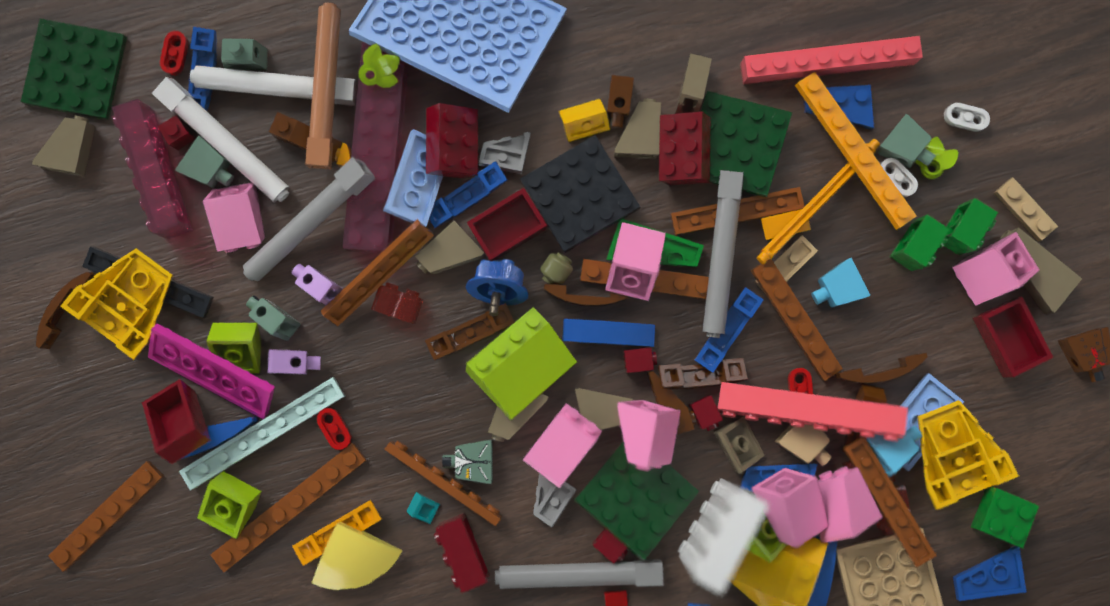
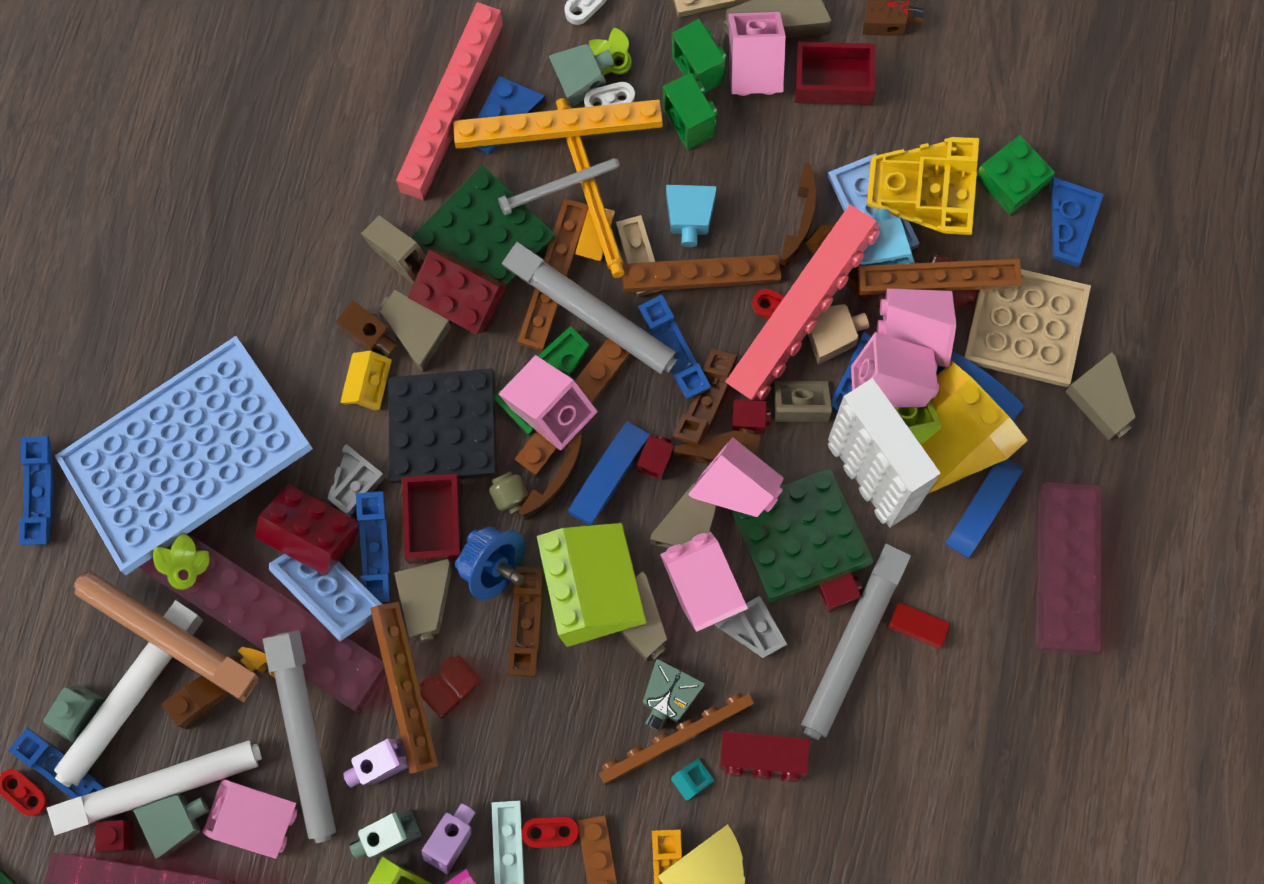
camera: 60 degrees left, 10 degrees down
(805, 177) = (507, 204): none -> light grey bar

